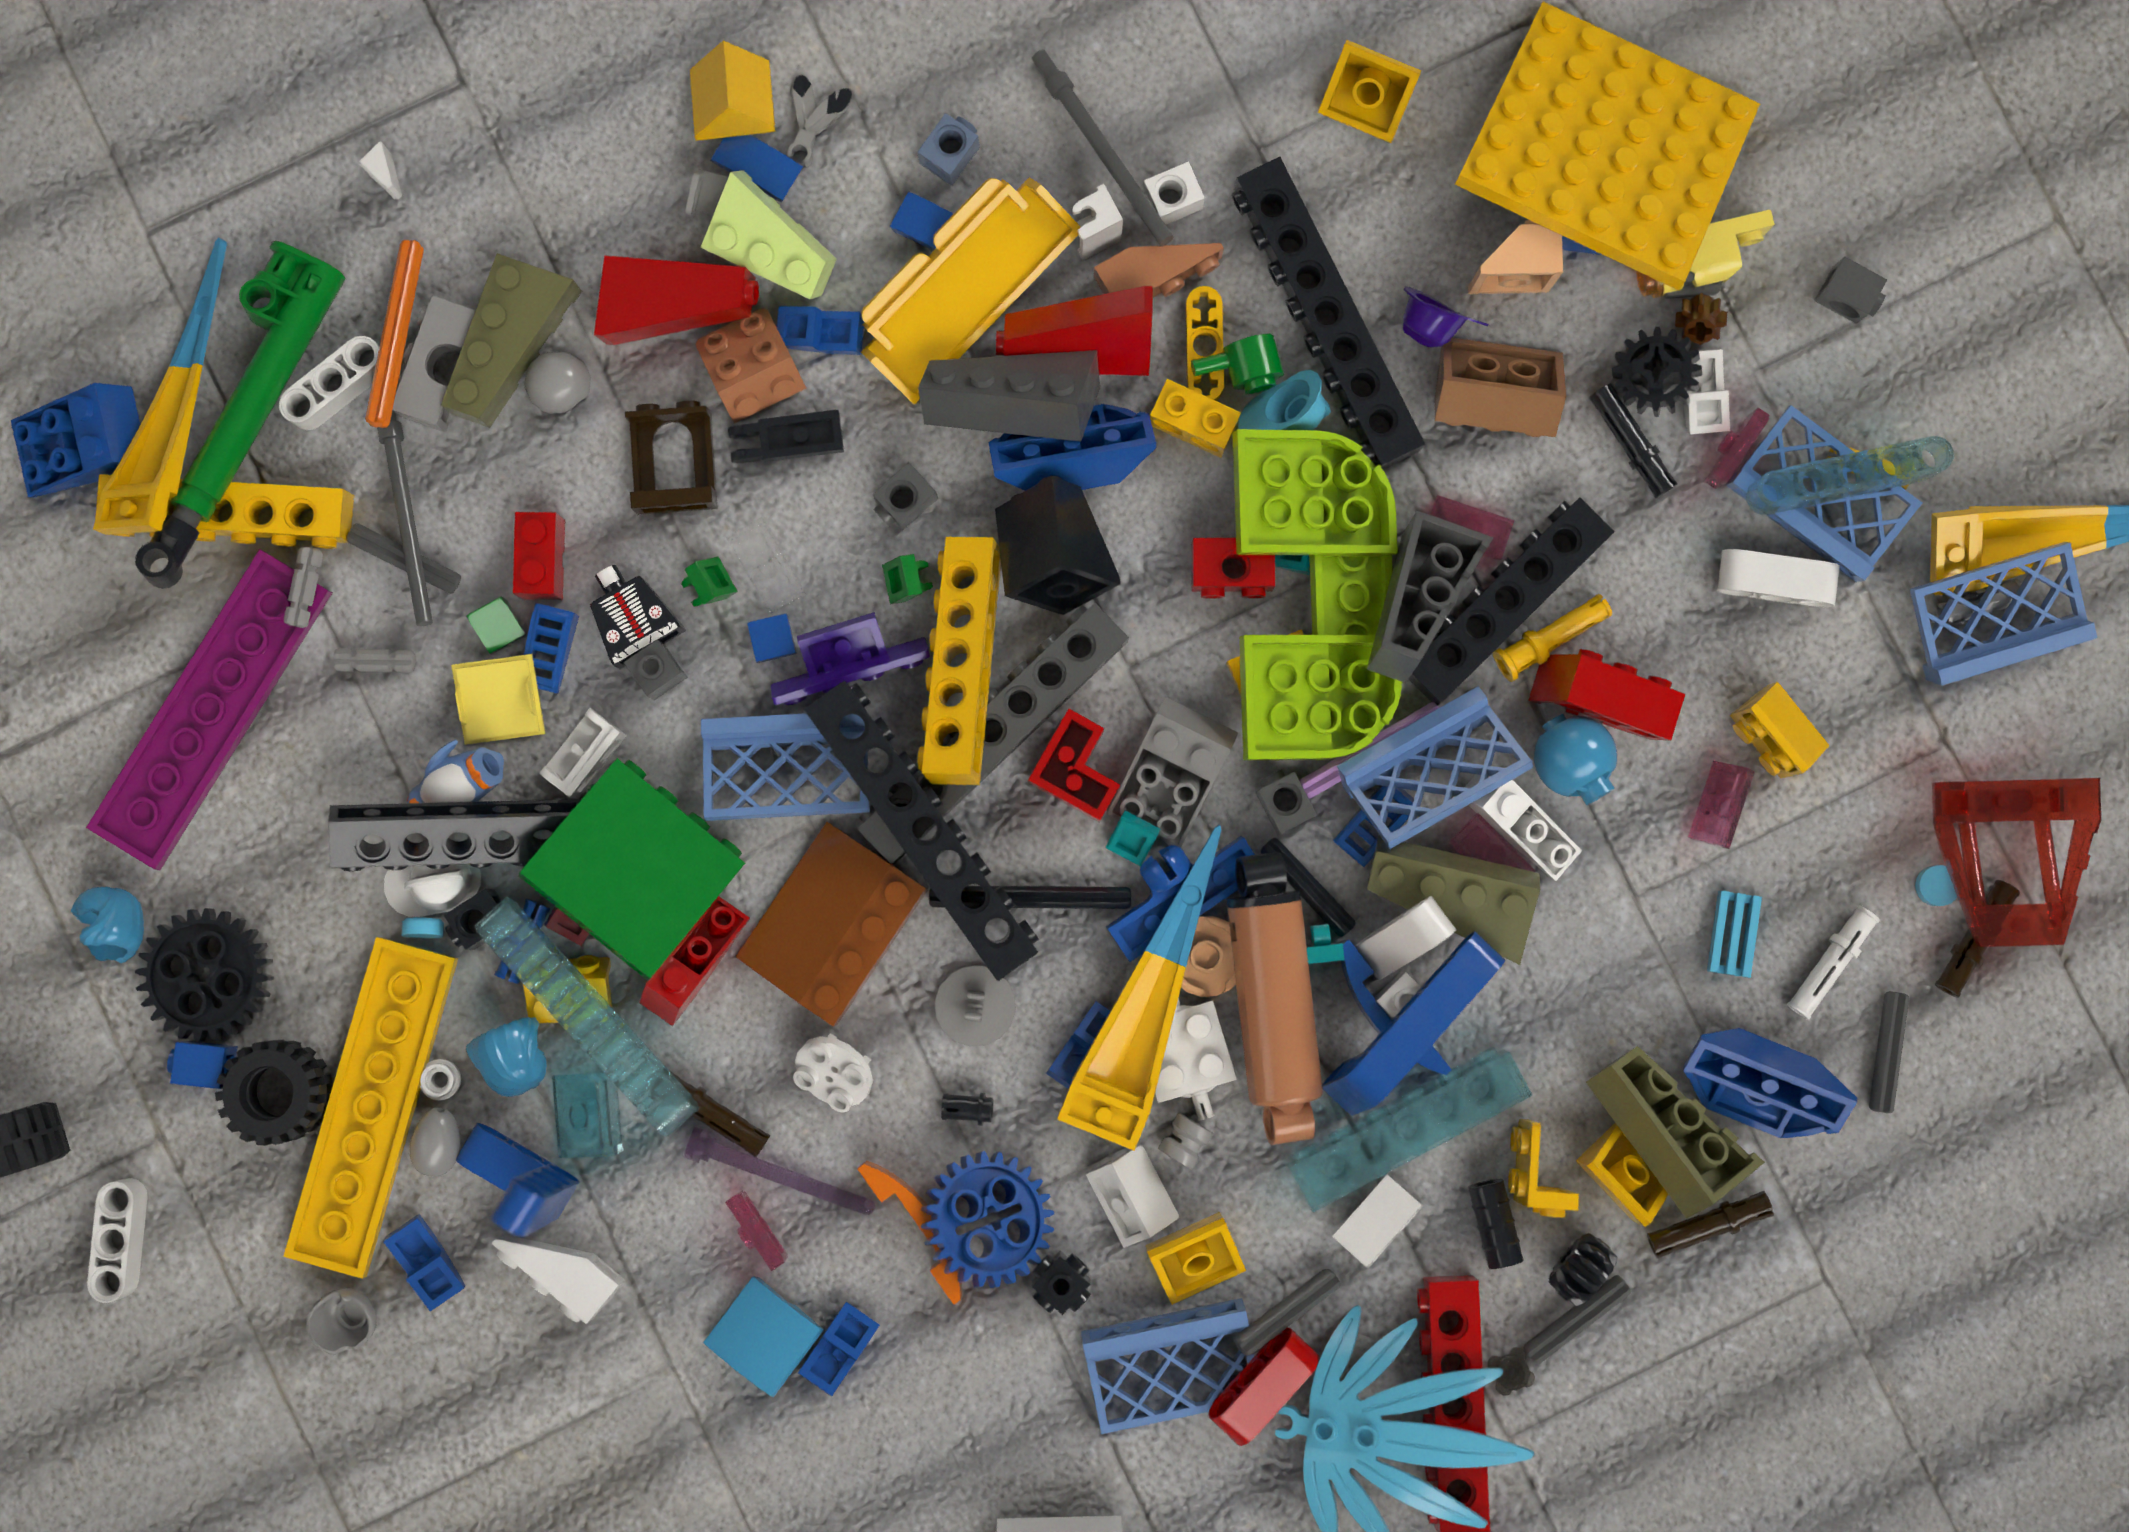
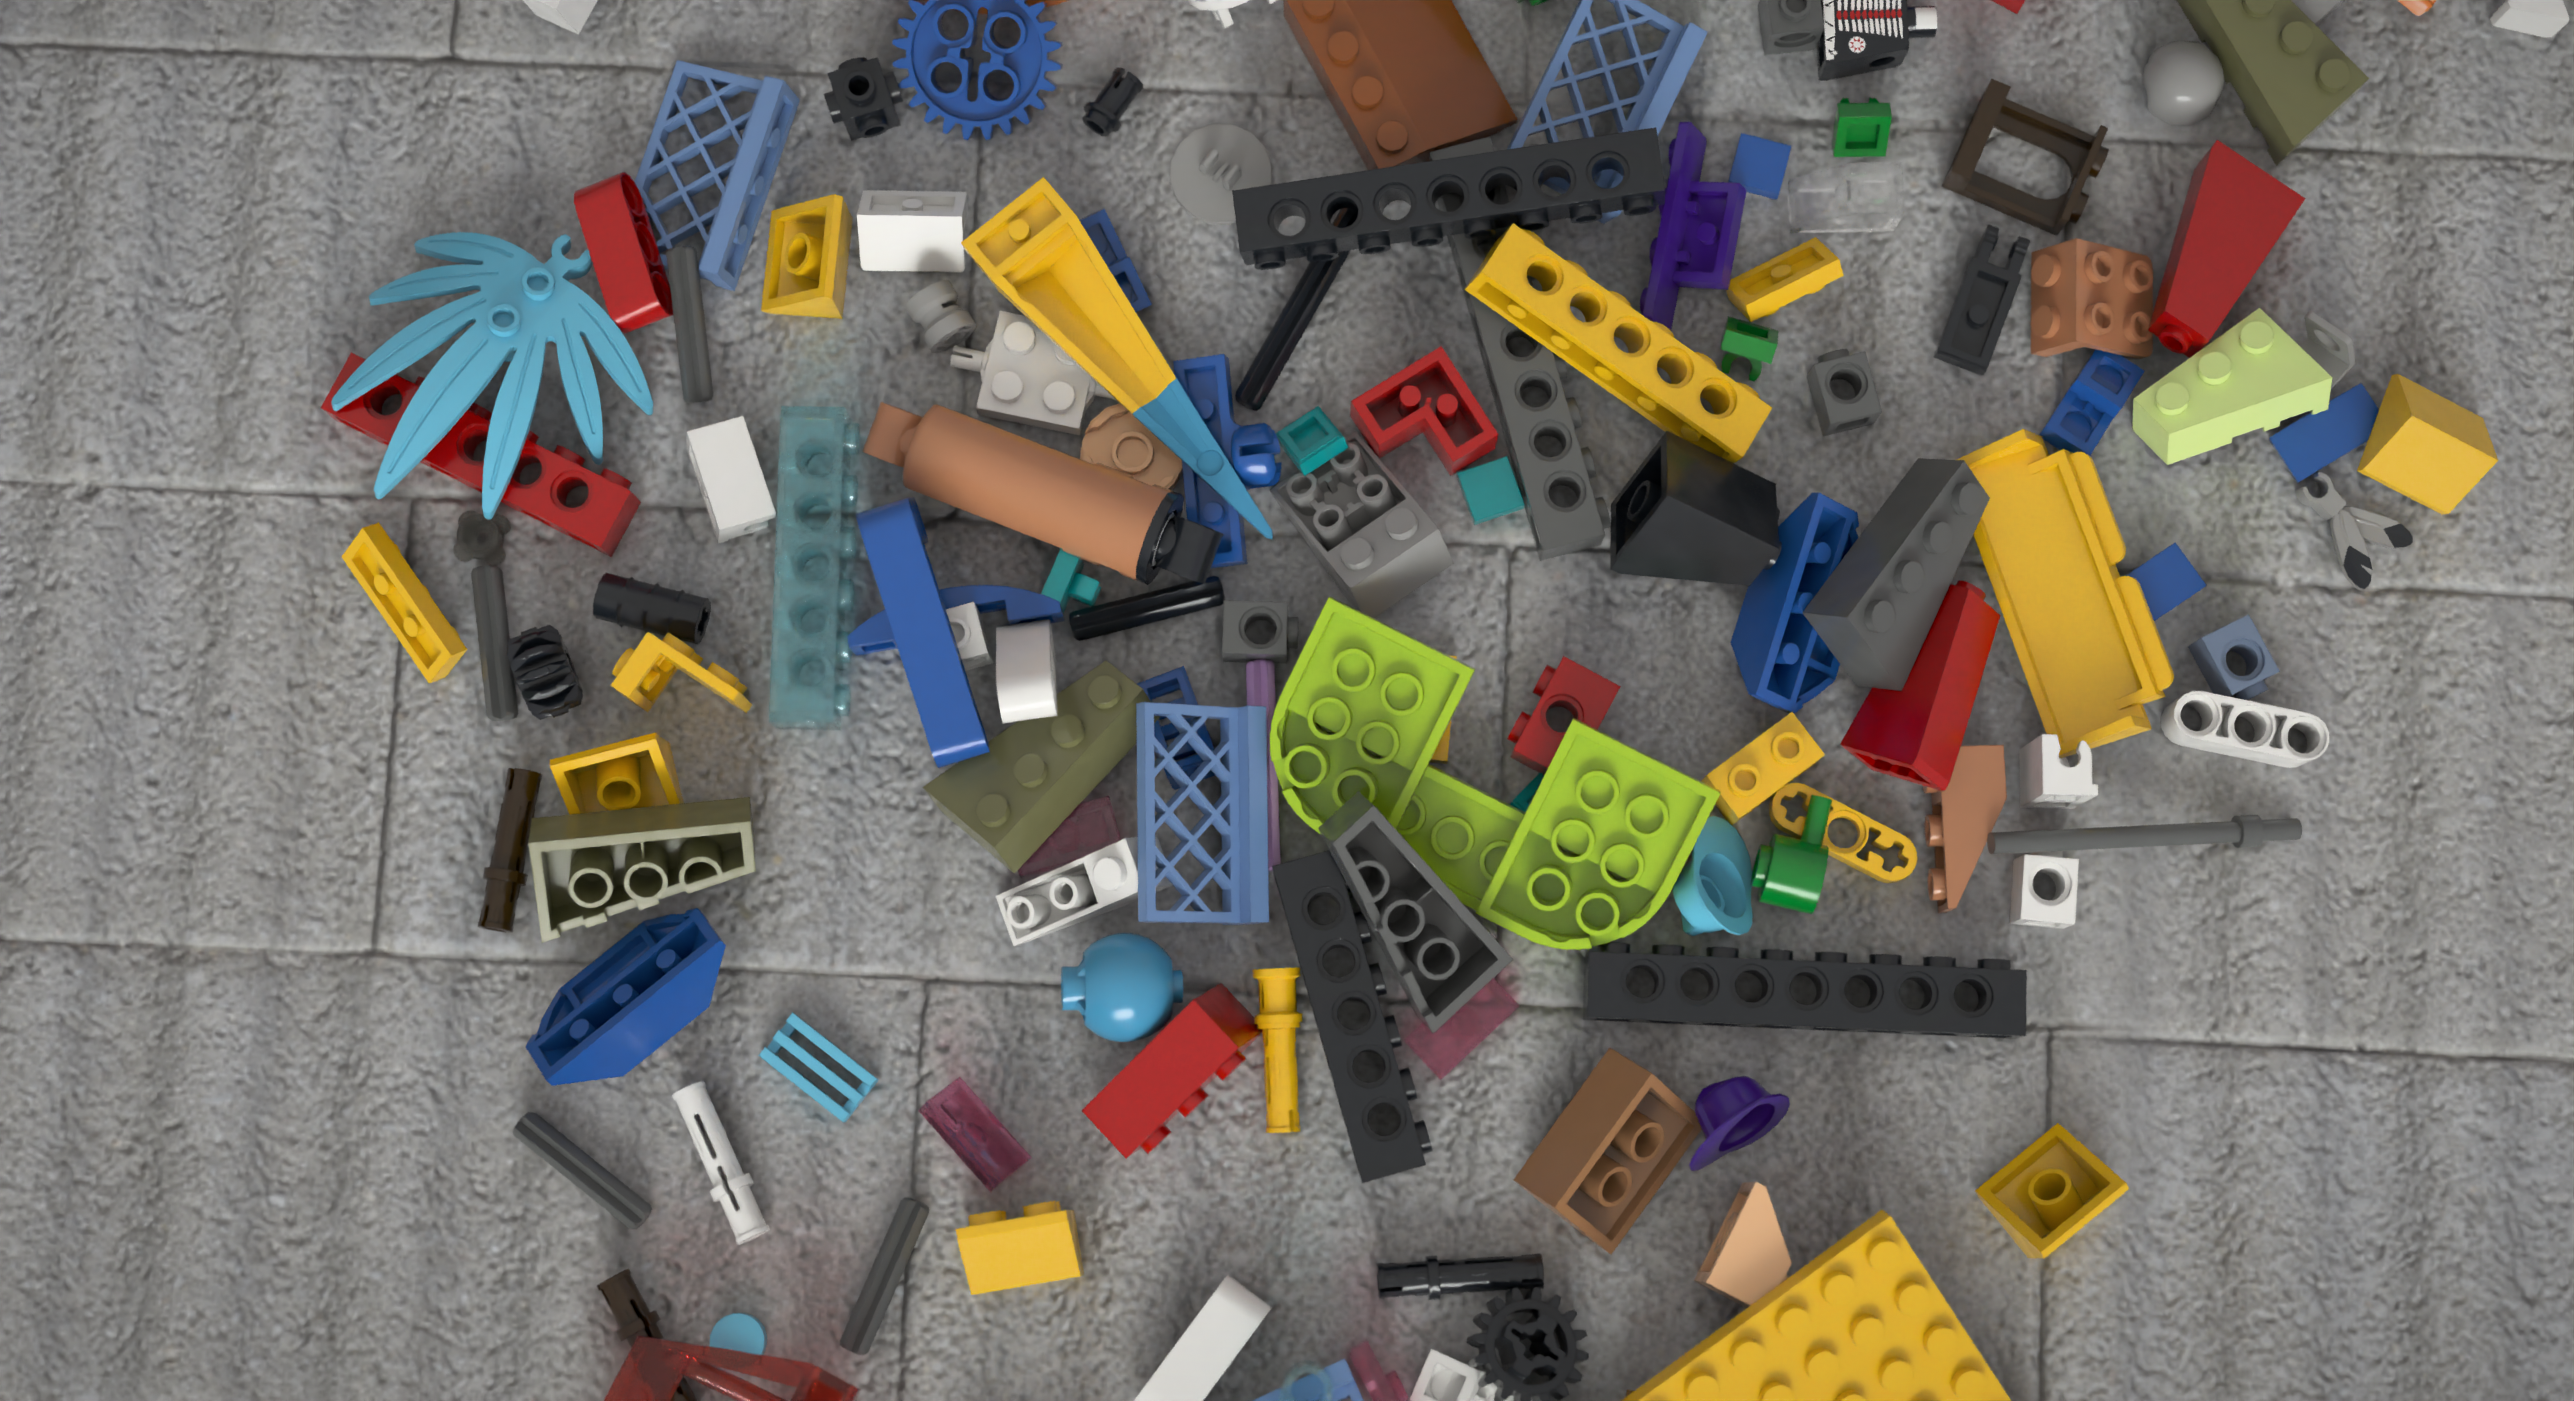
camera: 120 degrees right, 5 degrees down
(846, 578) = (1784, 279): none -> yellow plate
(992, 100) = (2269, 724): none -> white beam
(1099, 699) = (1490, 490): none -> teal tile
(1586, 1397) = (404, 602): none -> yellow plate
(1843, 813) = (884, 1276): none -> dark grey axle

